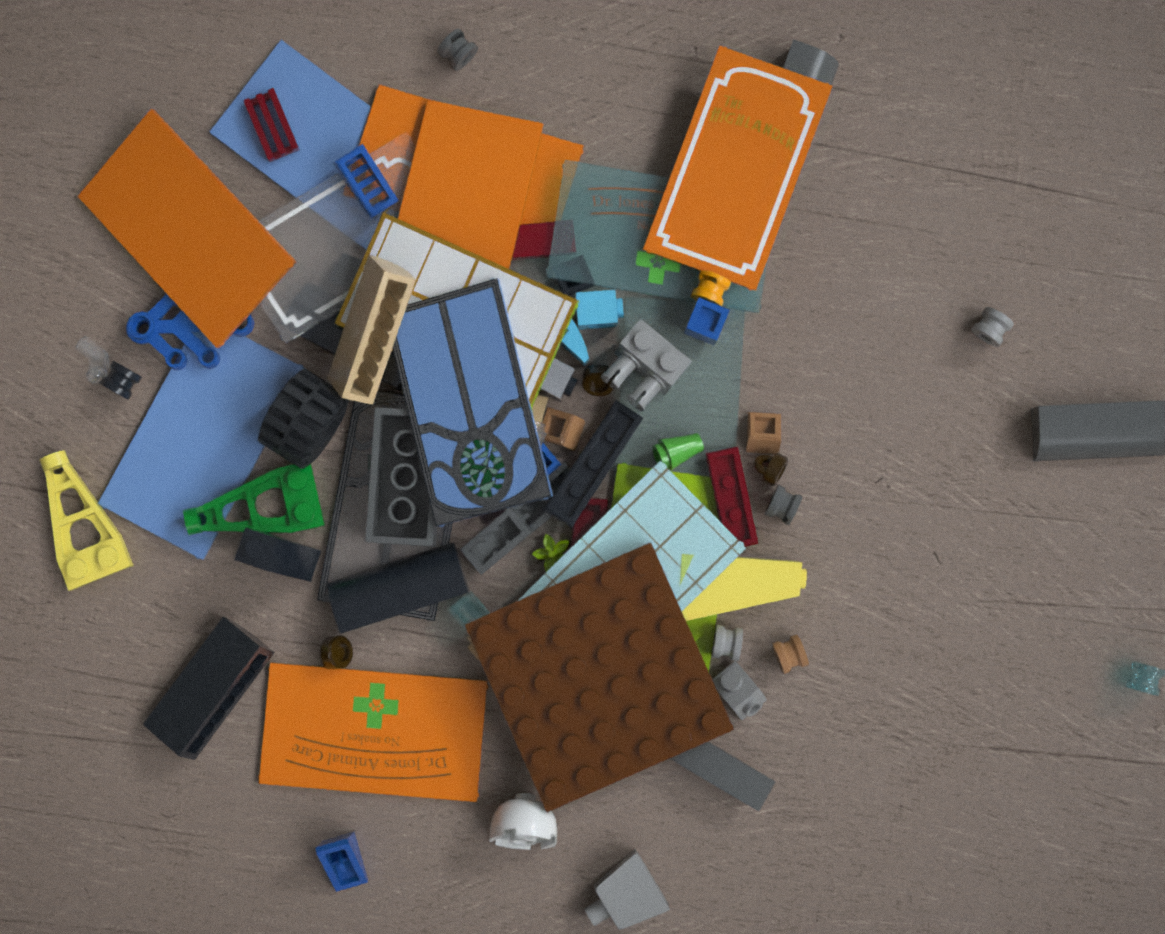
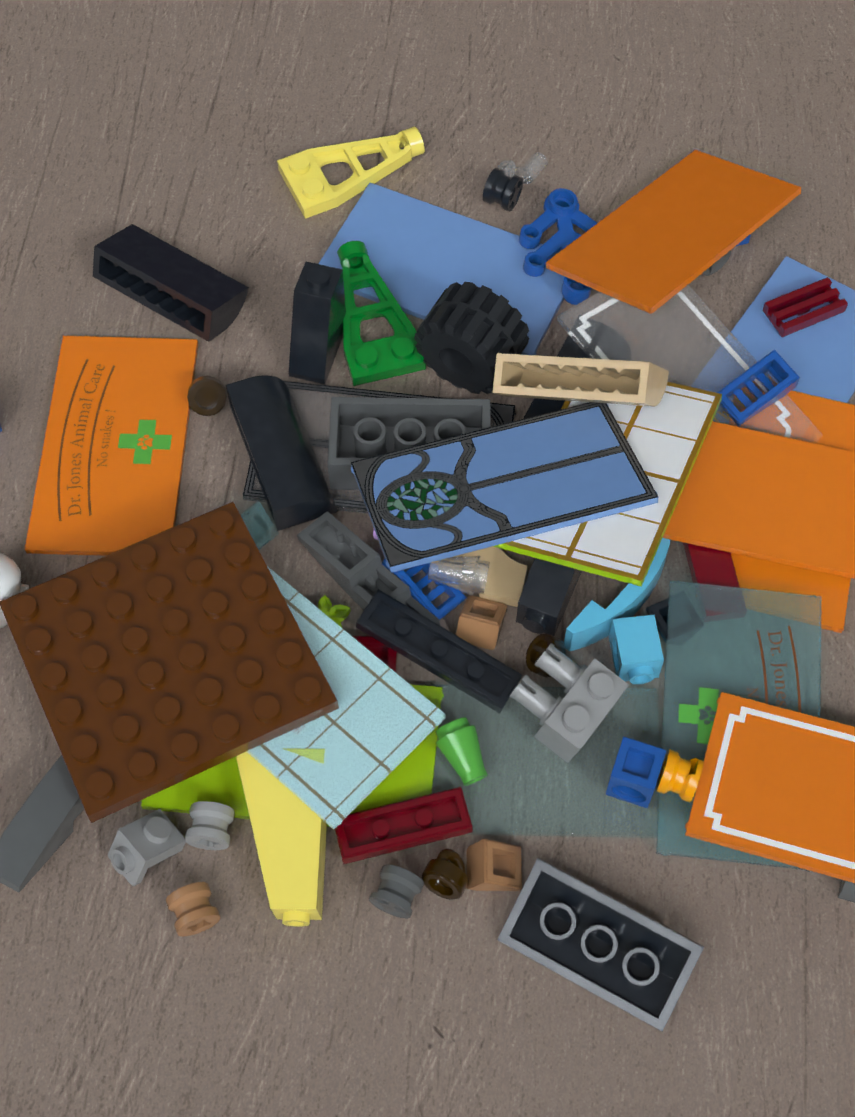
camera: 85 degrees right, 25 degrees down
(827, 361) = (600, 944): none -> black slope

